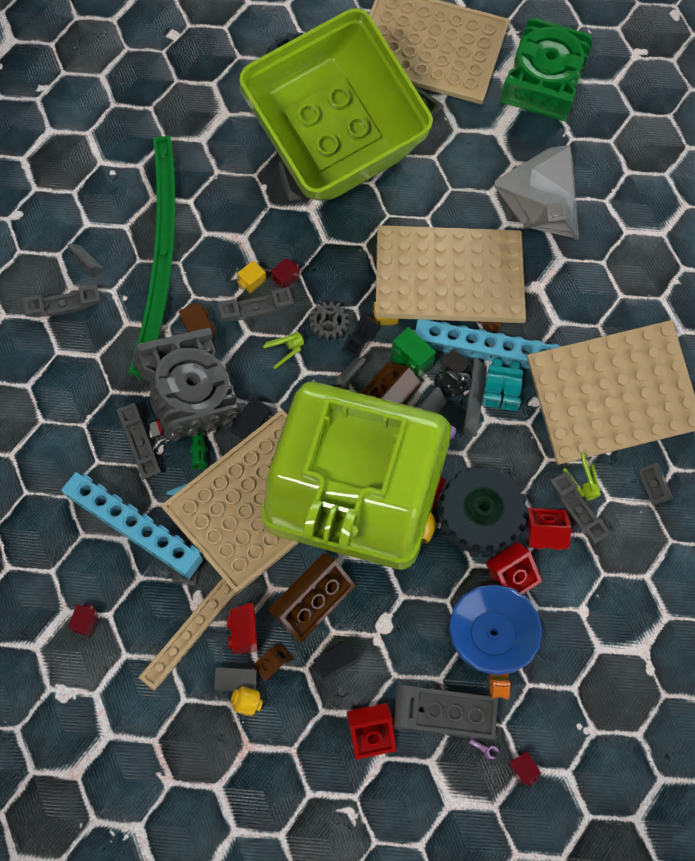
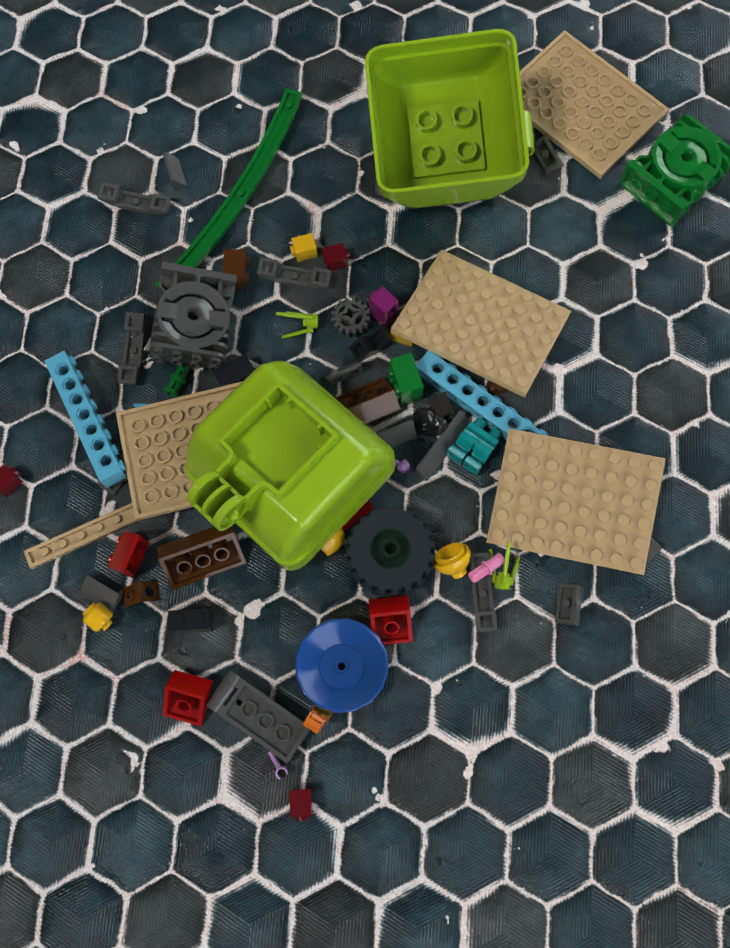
camera: 35 degrees right, 5 degrees up
(356, 298) = (383, 306): none -> magenta brick
(540, 491) = (452, 559): none -> yellow piece
(543, 192) = (611, 284): light grey panel -> none
(548, 528) = (443, 596): red slope -> none
(573, 484) = (486, 568): none -> bright pink axle

